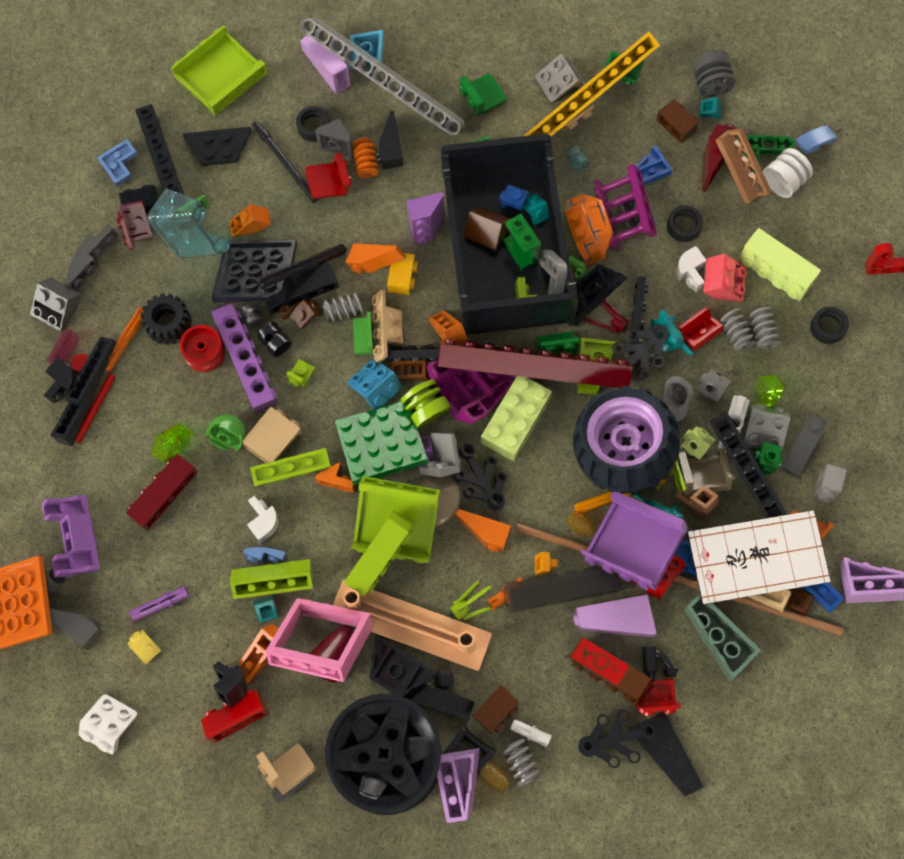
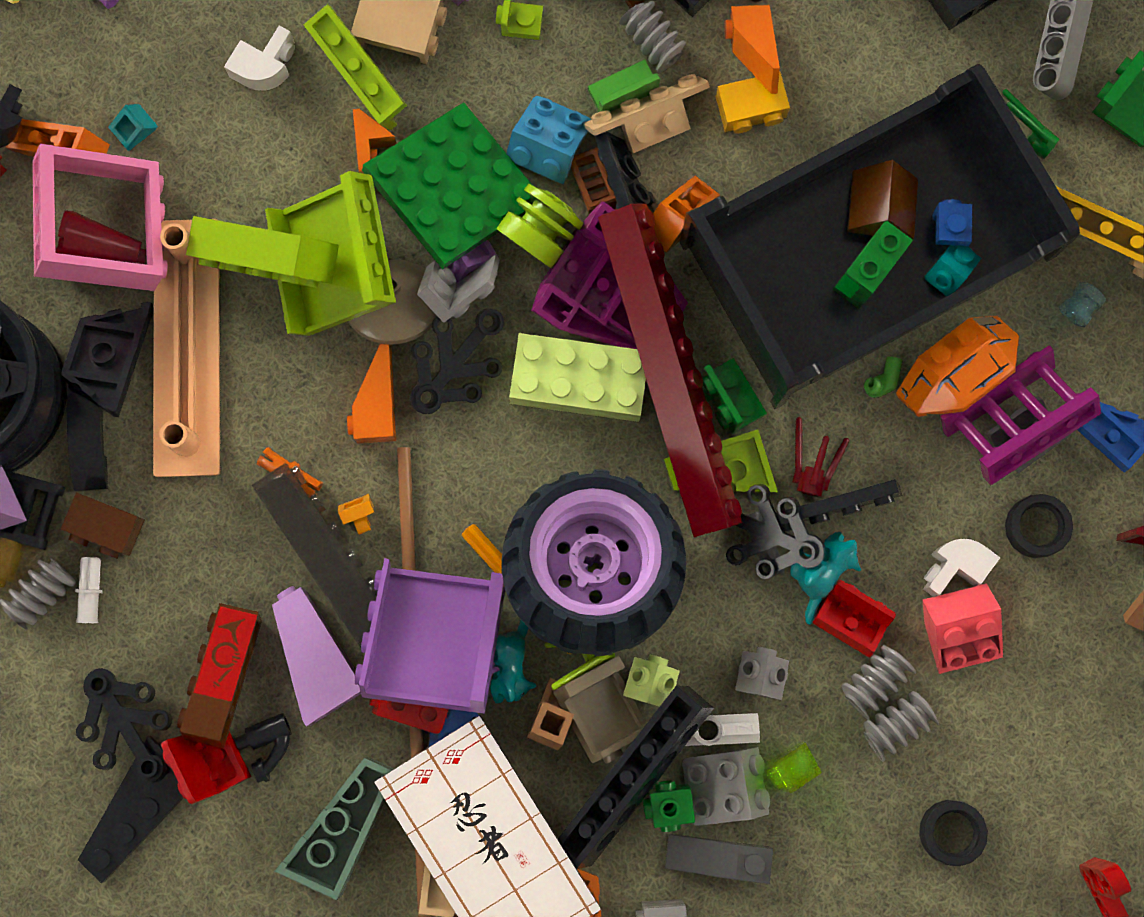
camera: 65 degrees right, 10 degrees up
(259, 554) = (207, 83): medium blue slope -> none
(271, 579) = (174, 113): lime brick -> none
(425, 217) = (856, 95): medium lavender slope -> none
(444, 679) = (124, 430): black tile -> none
(461, 607) = (238, 414): lime plant -> none
(522, 288) = (793, 301): lime bracket -> none
(556, 268) = (843, 341): light grey beam -> none
(580, 524) = (443, 544): clear yellow brick -> none
(595, 289) = (845, 418): black wing -> none
(677, 396) = (715, 622): light grey piece -> none
(779, 264) = (1023, 709): yellowish green brick -> none

